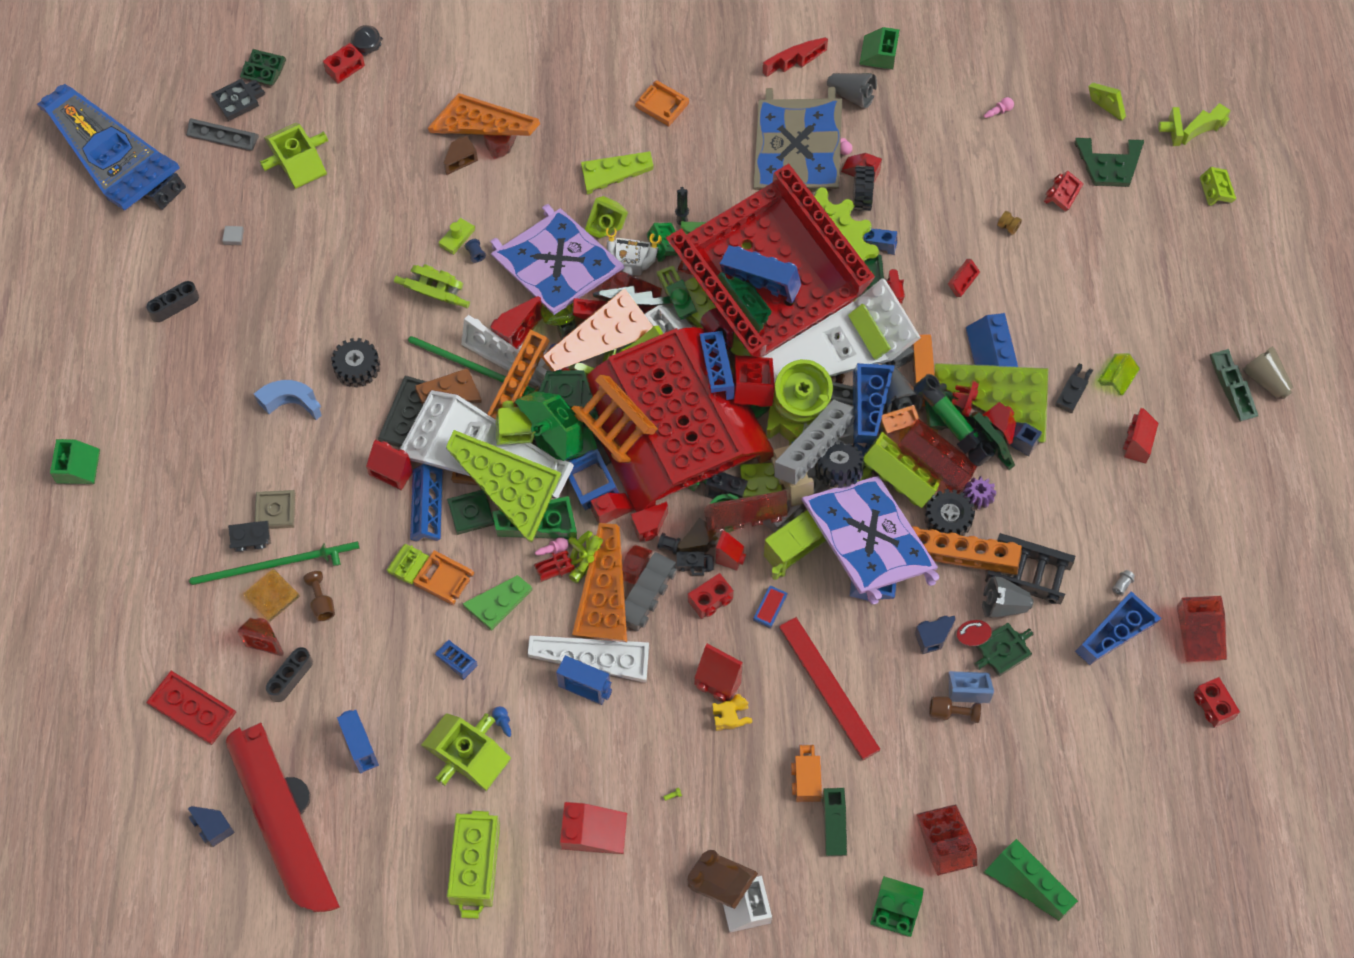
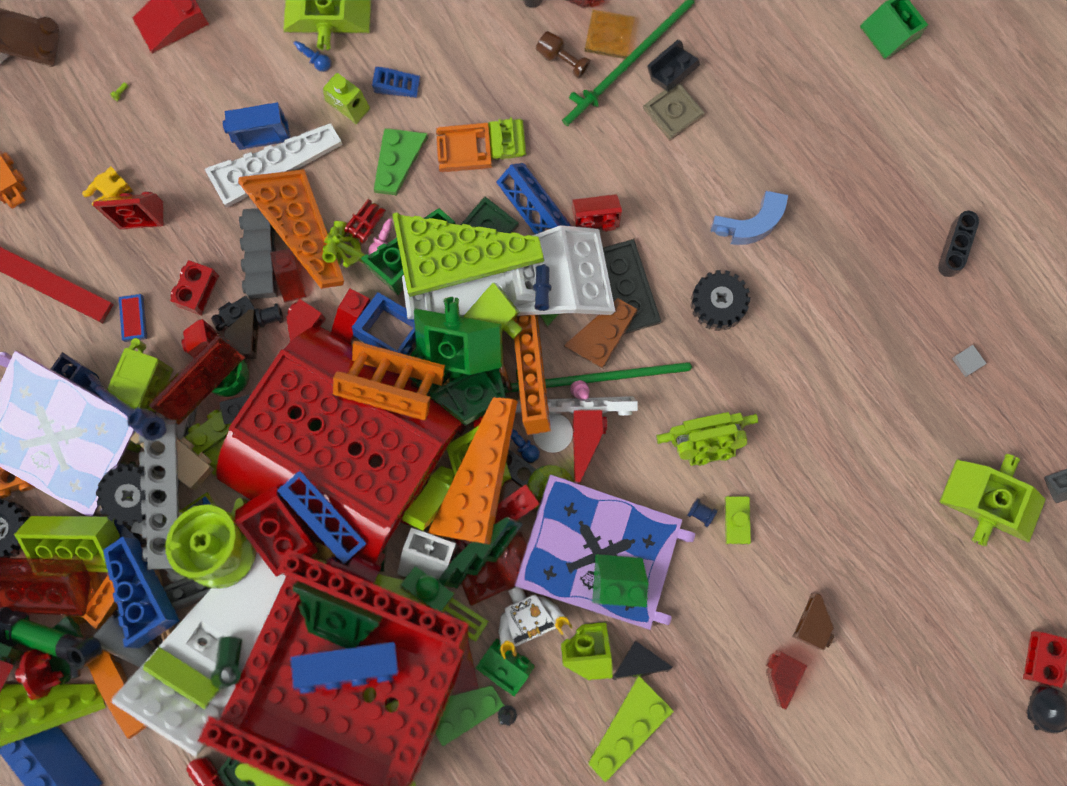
camera: 150 degrees right, 15 degrees up
(470, 418) = (542, 288): none -> dark blue axle
(476, 116) = (834, 683): orange wing -> none
(493, 361) = (580, 390): none -> bright pink bar
(503, 664) = (342, 95): none -> lime torso
(558, 233) = (620, 581): none -> green slope
(581, 196) = (640, 662): none -> black tile
(828, 564) = (140, 420): none -> dark blue bar
(838, 318) = (228, 660): none -> dark green piece

